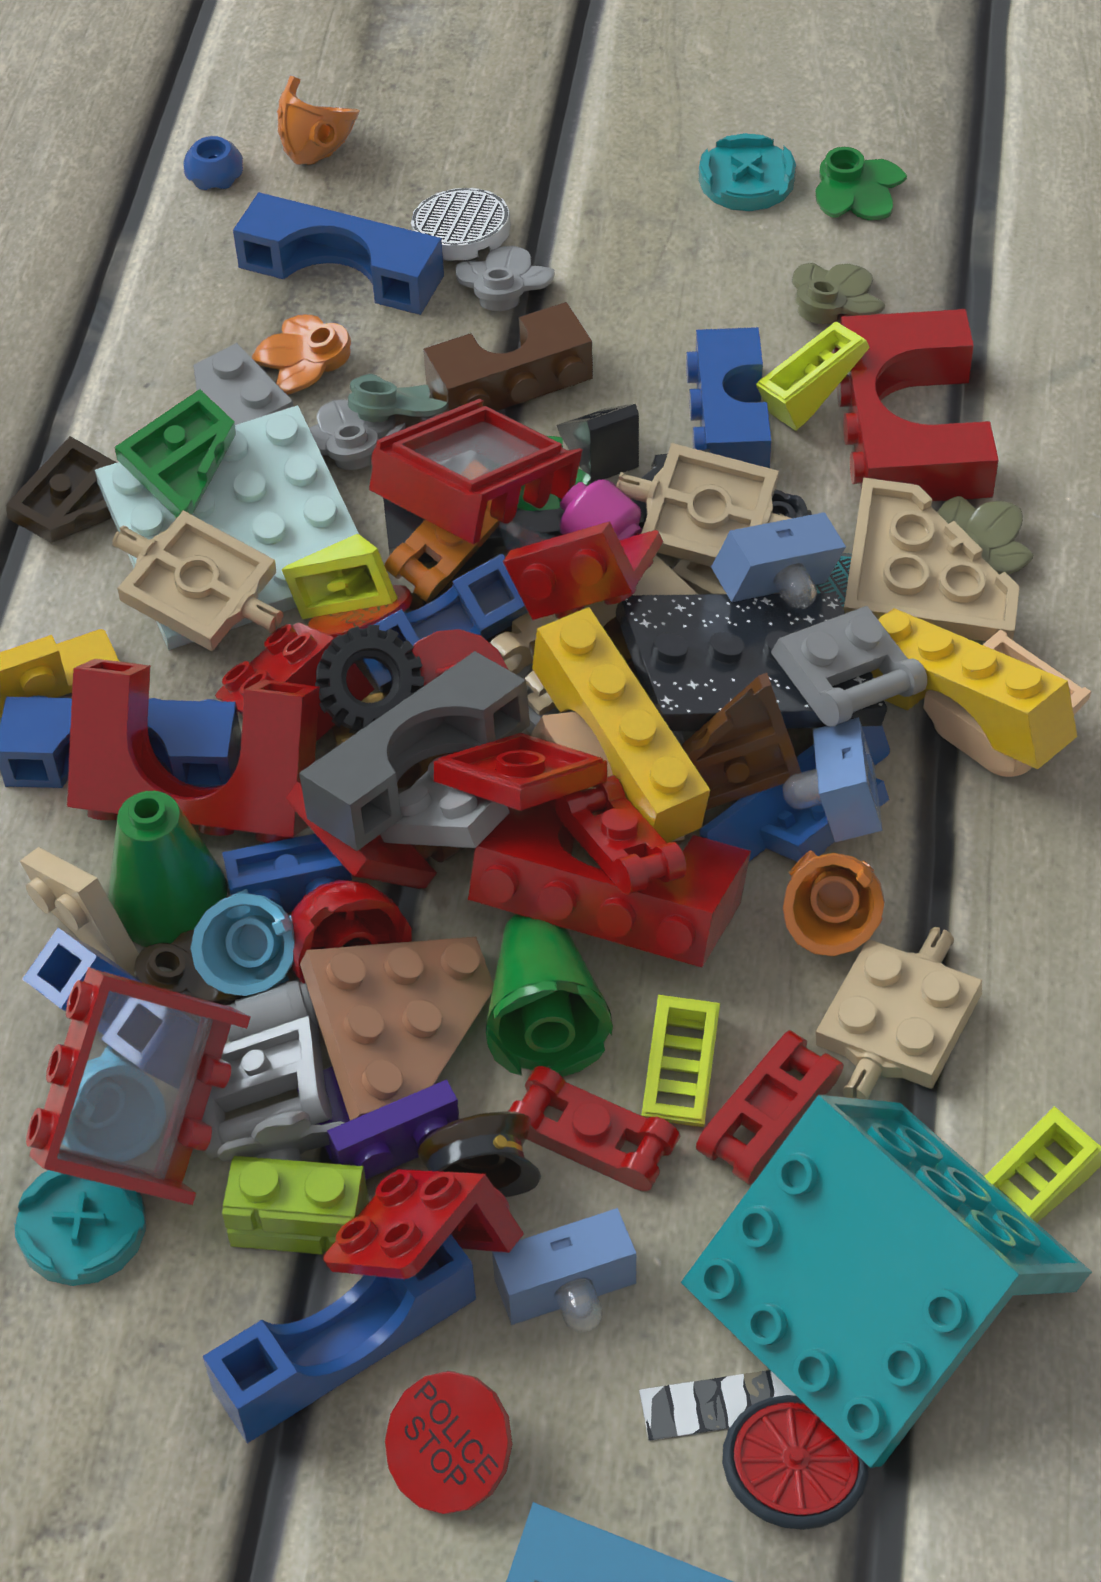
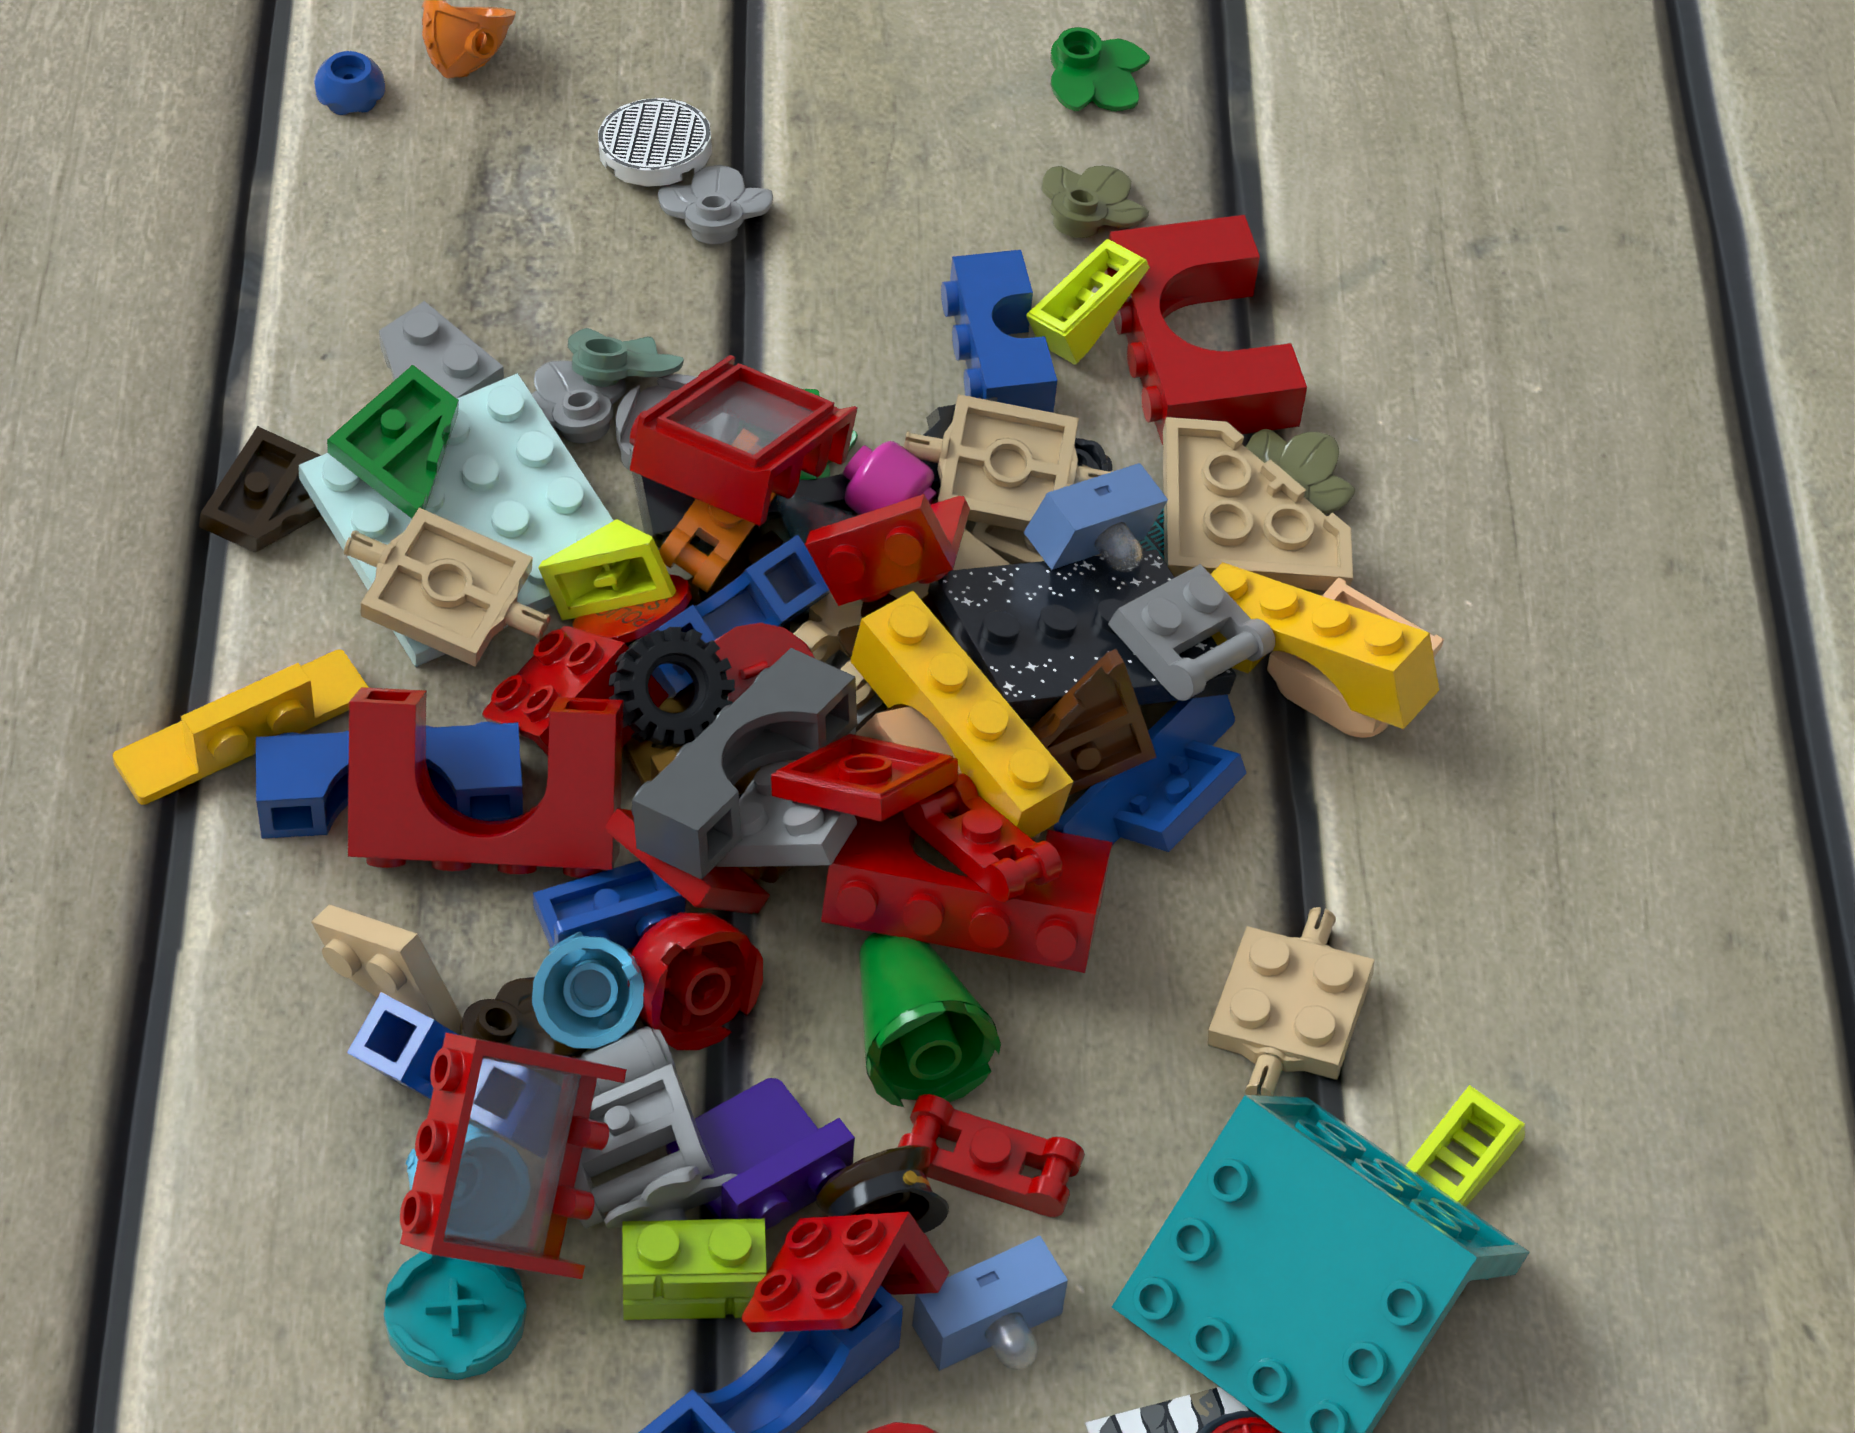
camera: 15 degrees left, 0 degrees up
(161, 870) = (476, 920): green cone -> none
(287, 235) = (459, 167): blue arch -> none
(304, 351) = (502, 305): orange plate -> none
(394, 1013) = (762, 1053): nougat plate -> none
(551, 357) = (788, 295): reddish brown arch -> none
(607, 440) = (872, 382): black slope -> none
(685, 1014) = (1072, 1024): neon yellow slope -> none
(747, 172) = (968, 62): teal tile -> none
(768, 1105) = (1172, 1113): red plate -> none
(832, 903) = (1207, 890): orange helmet -> none
(841, 782) = (1200, 758): medium blue piece -> none

